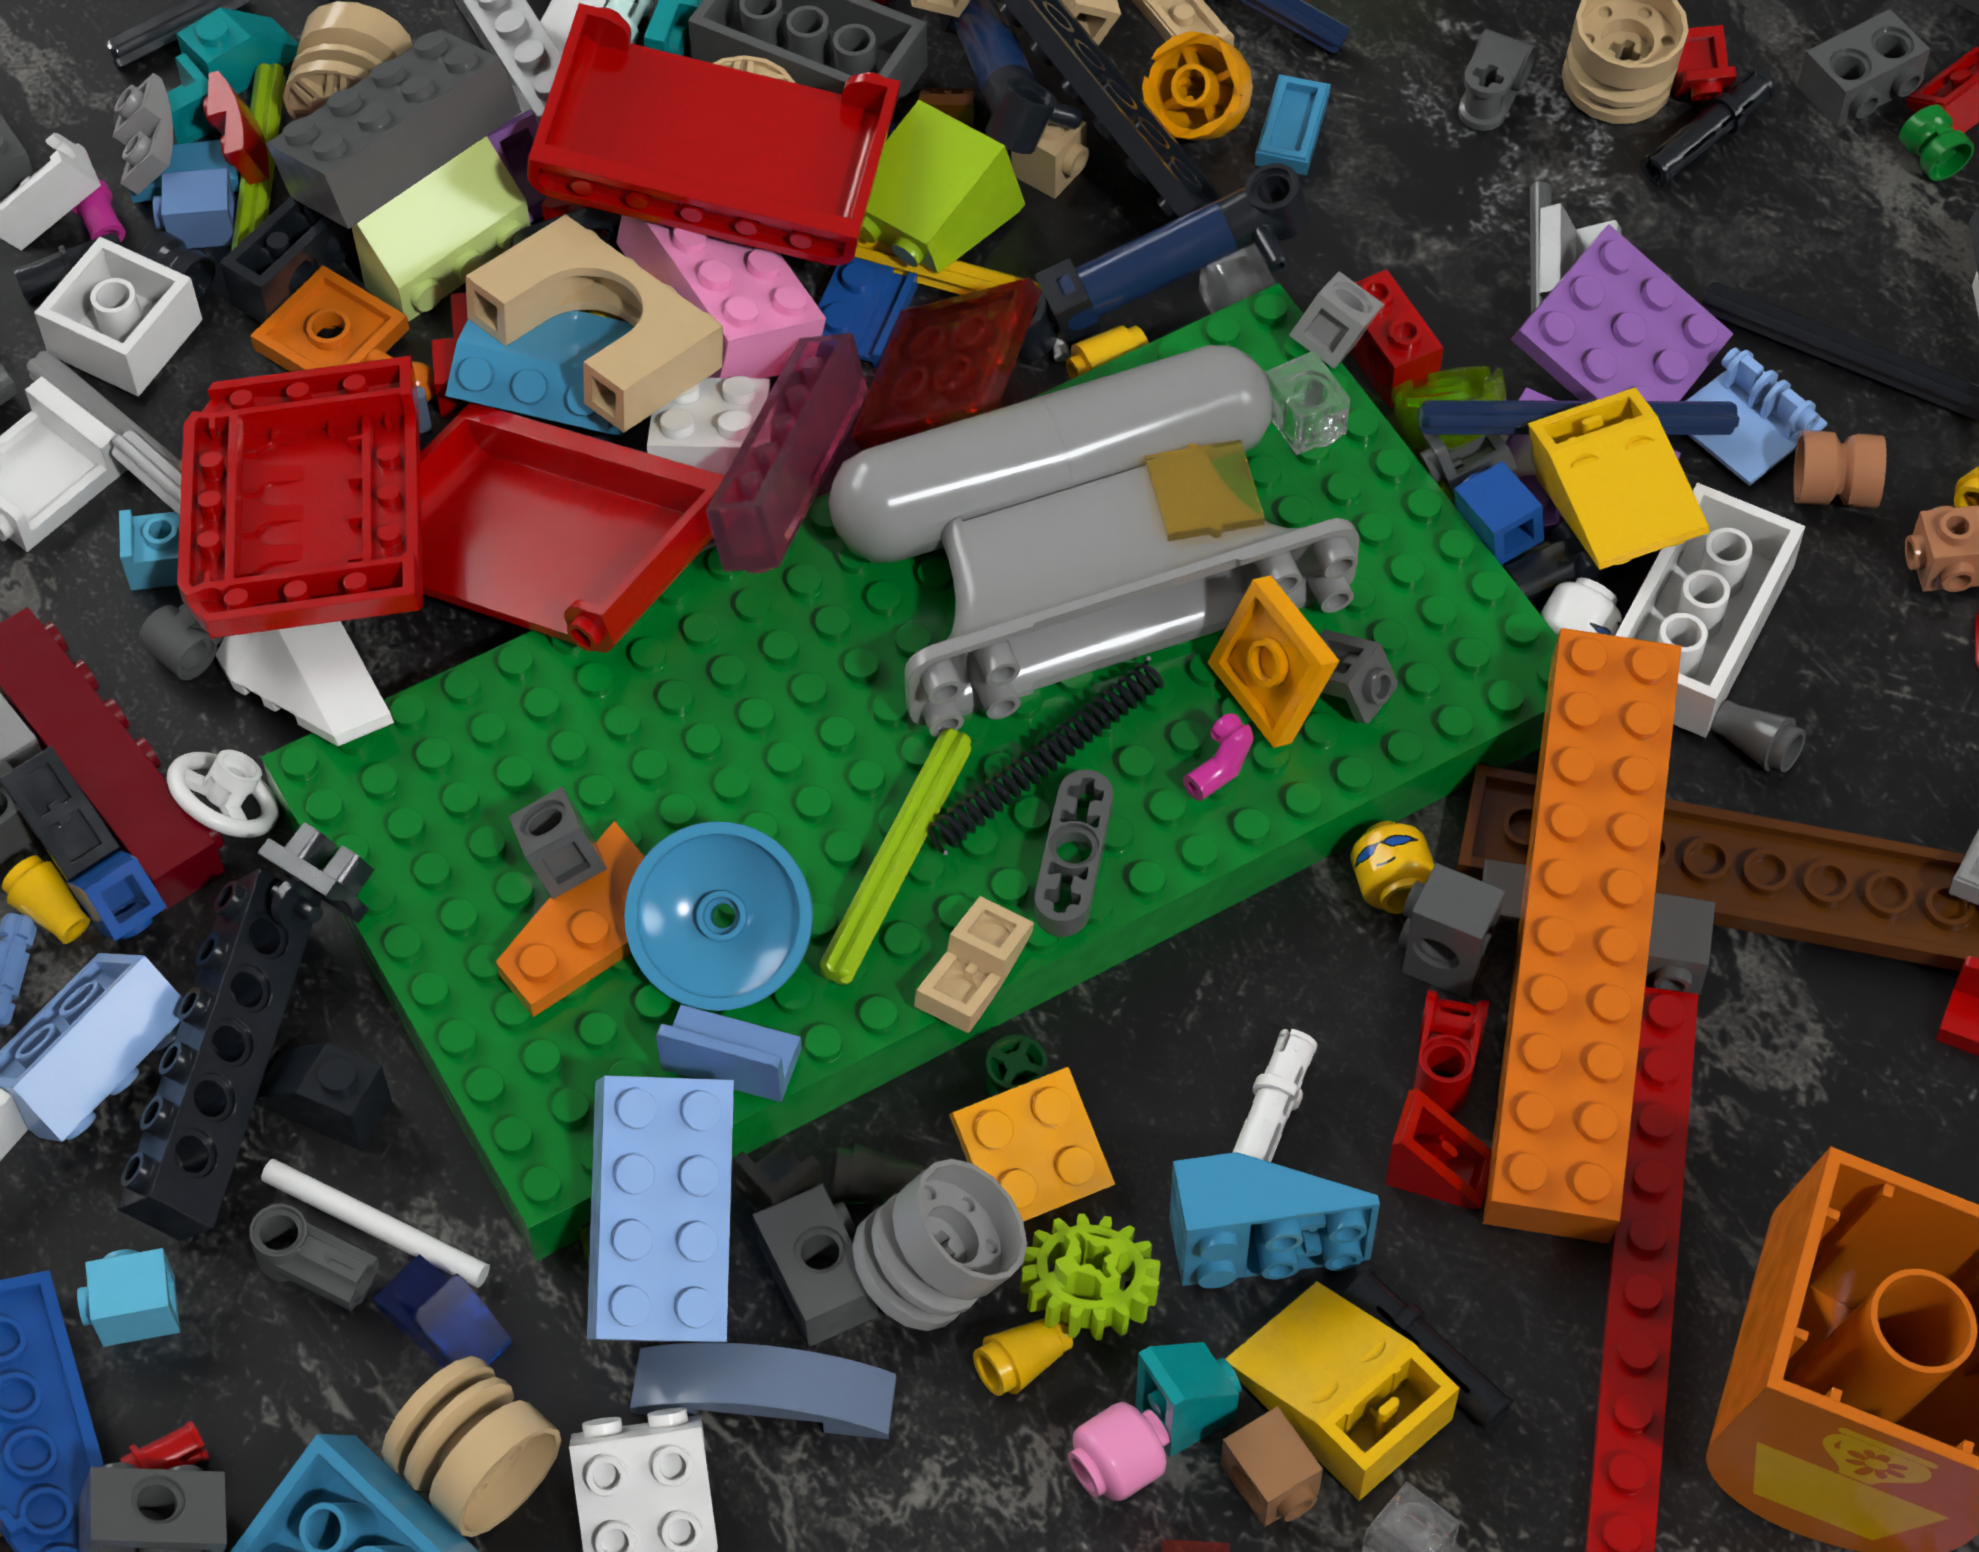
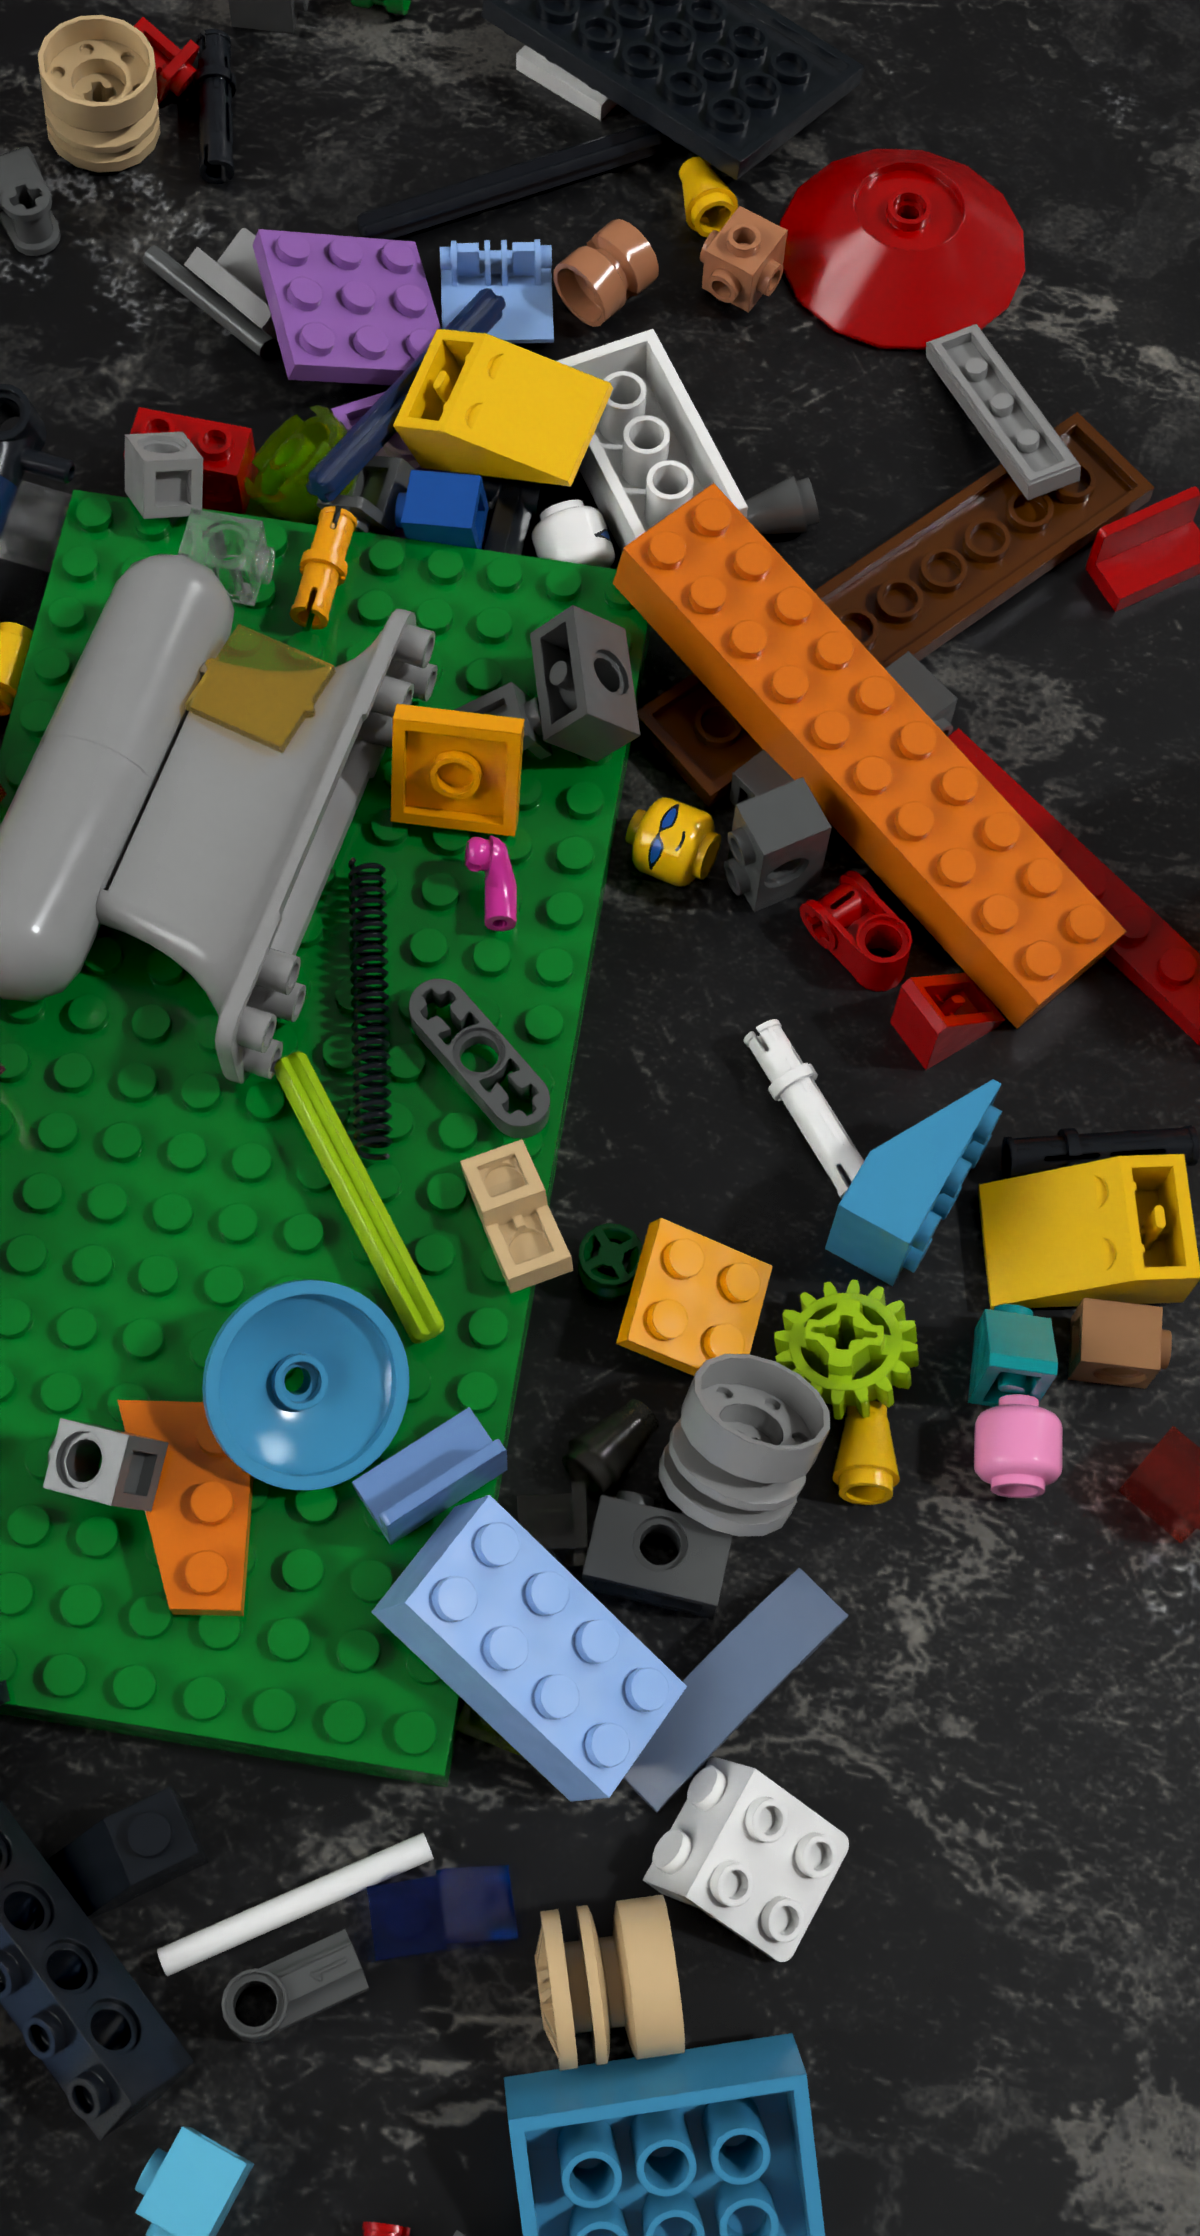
camera: 55 degrees left, 10 degrees up
(1365, 469) = (323, 568): none -> light orange pin
(1402, 700) = (584, 684): none -> dark grey brick

